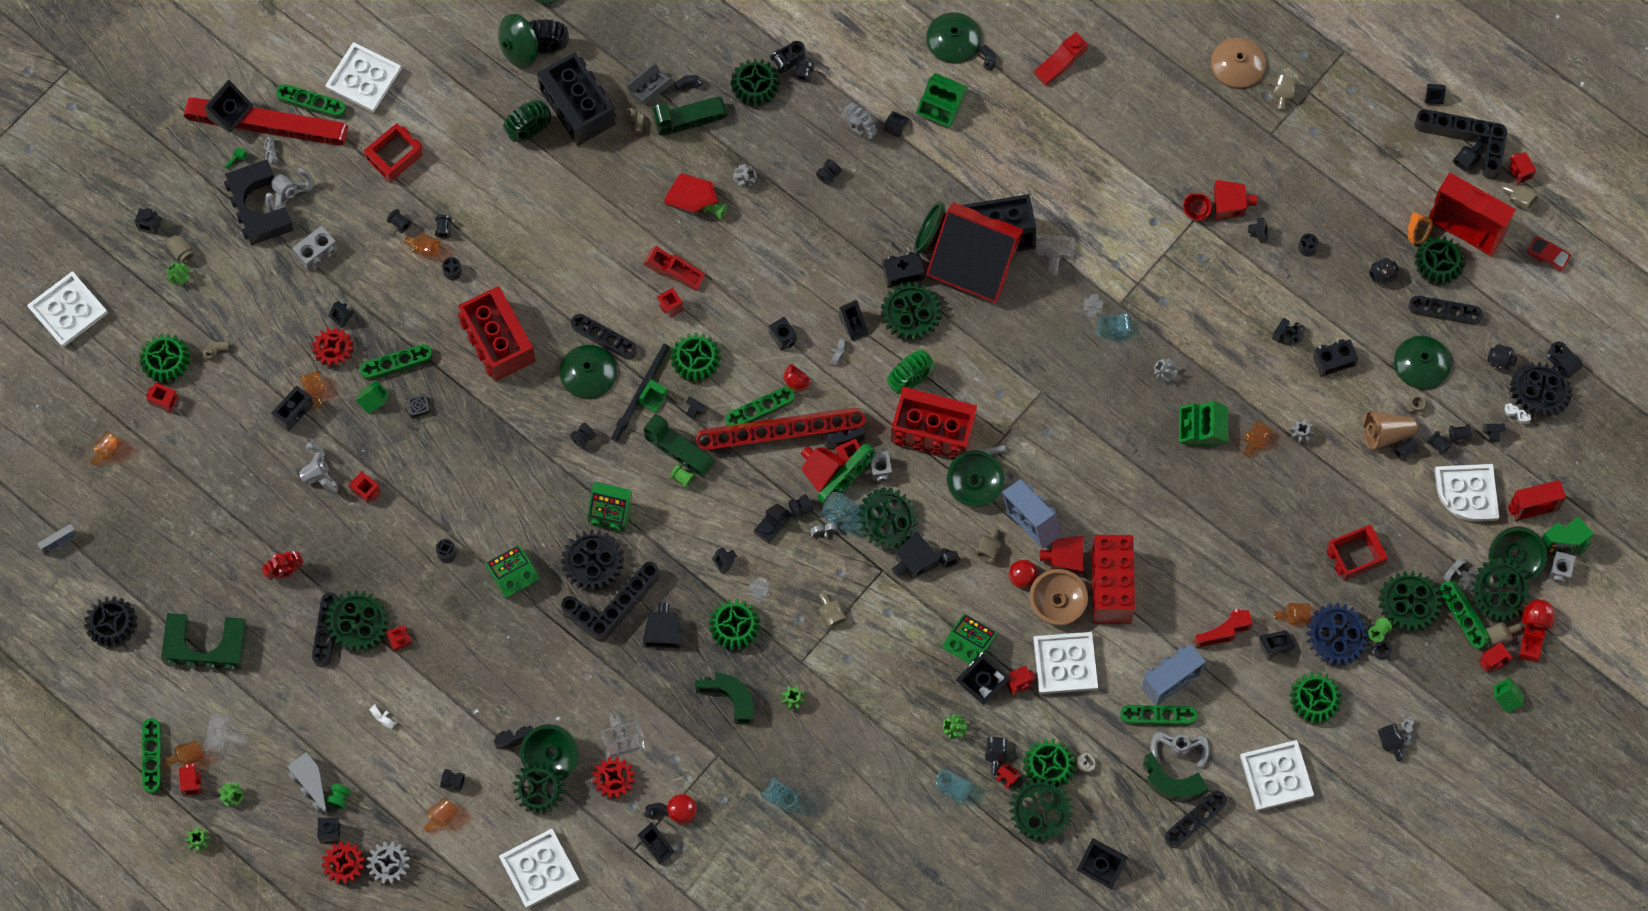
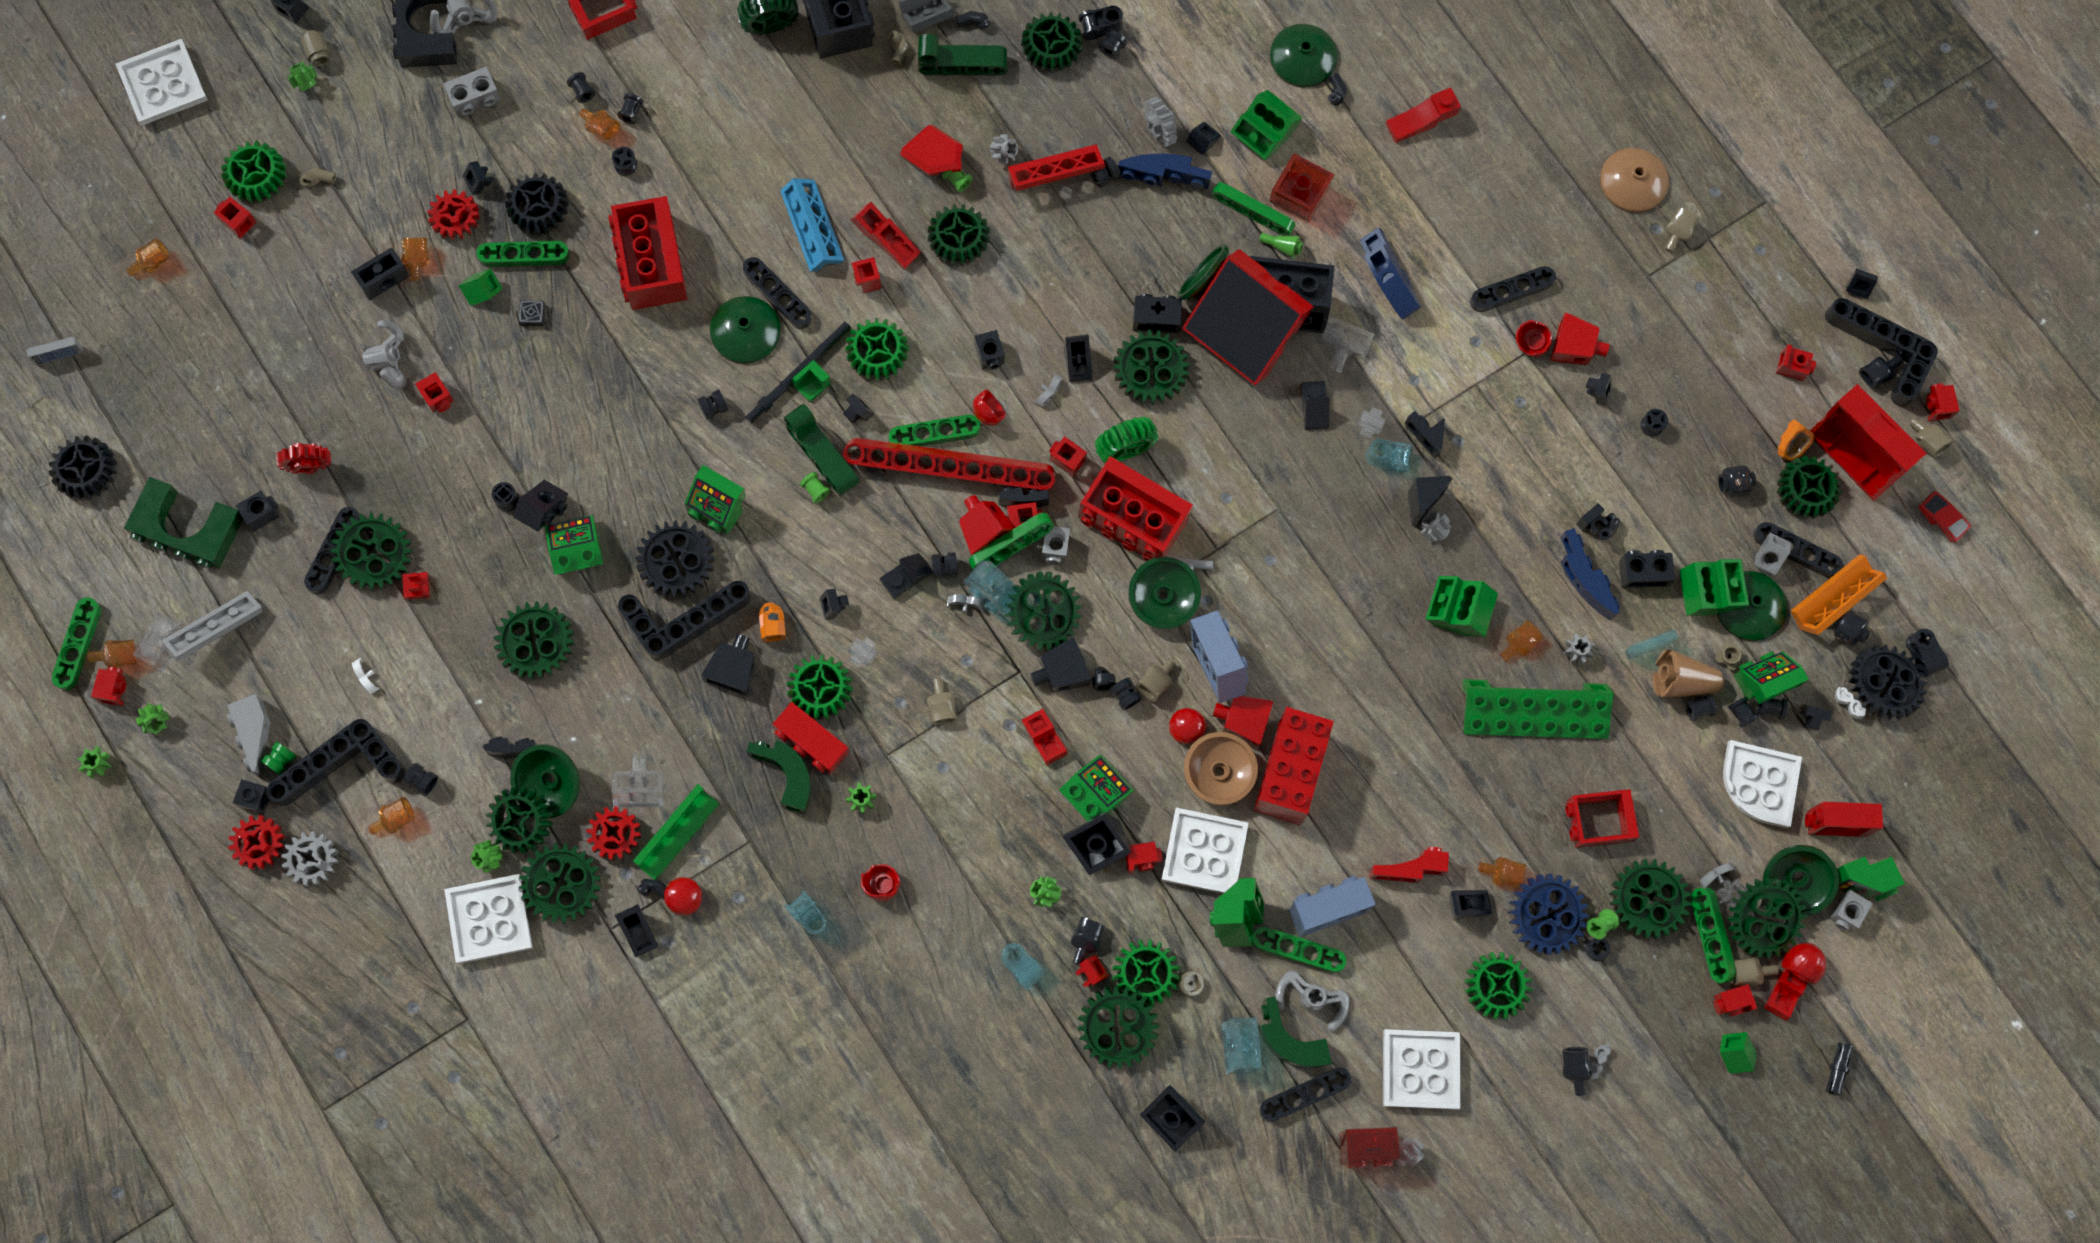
camera: 10 degrees right, 5 degrees up
(254, 711) = (211, 626): none -> light grey plate
(258, 623) = (248, 507): none -> black brick
(381, 314) = (532, 192): none -> black gear
(382, 784) = (334, 761): none -> black beam
(478, 548) = (541, 505): none -> black brick
(520, 644) = (555, 635): none -> dark green gear
(522, 822) = (486, 856): none -> bright green gear
(566, 824) = (538, 875): none -> dark green gear
(611, 277) = (807, 222): none -> dark azure fence
(660, 764) = (676, 832): none -> green fence
(682, 587) = (772, 623): none -> orange rock
(740, 665) = (810, 739): none -> red brick
(743, 243) = (976, 229): none -> dark green gear
(789, 179) = (1055, 167): none -> red fence
(828, 755) = (880, 882): none -> red hair
(872, 392) = (1067, 447): none -> red brick
(880, 153) = (1156, 167): none -> dark blue slope
(916, 613) = (1044, 737): none -> red slope
(952, 168) = (1253, 209): none -> green beam
(969, 563) = (1125, 693): none -> black wheel
(984, 141) = (1301, 187): none -> clear red brick
(986, 188) = (1287, 244): none -> bright green cone
(1045, 305) = (1315, 405): none -> black slope
(1072, 189) = (1389, 274): none -> dark blue slope
(1104, 699) = (1237, 913): none -> green piece
(1137, 796) = (1241, 1045): none -> clear light blue brick
(1139, 304) = (1429, 437): none -> black slope
(1150, 348) = (1425, 494): none -> black slope
(1170, 173) = (1513, 290): none -> black beam
(1254, 841) = (1369, 1146): none -> clear red brick
(1284, 486) = (1537, 711): none -> green bracket
(1285, 838) = (1410, 1152): none -> light grey gear
(1295, 380) = (1590, 584): none -> dark blue slope
(1355, 412) = (1651, 644): none -> clear light blue tile
(1389, 356) = (1713, 587): none -> green piece
(1402, 169) = (1790, 366): none -> red brick
(1426, 311) = (1774, 545): none -> light grey brick
(1451, 411) = (1770, 676): none -> green piece
(1484, 336) = (1836, 594): none -> orange fence
(1587, 685) = (1839, 1069): none -> black pin

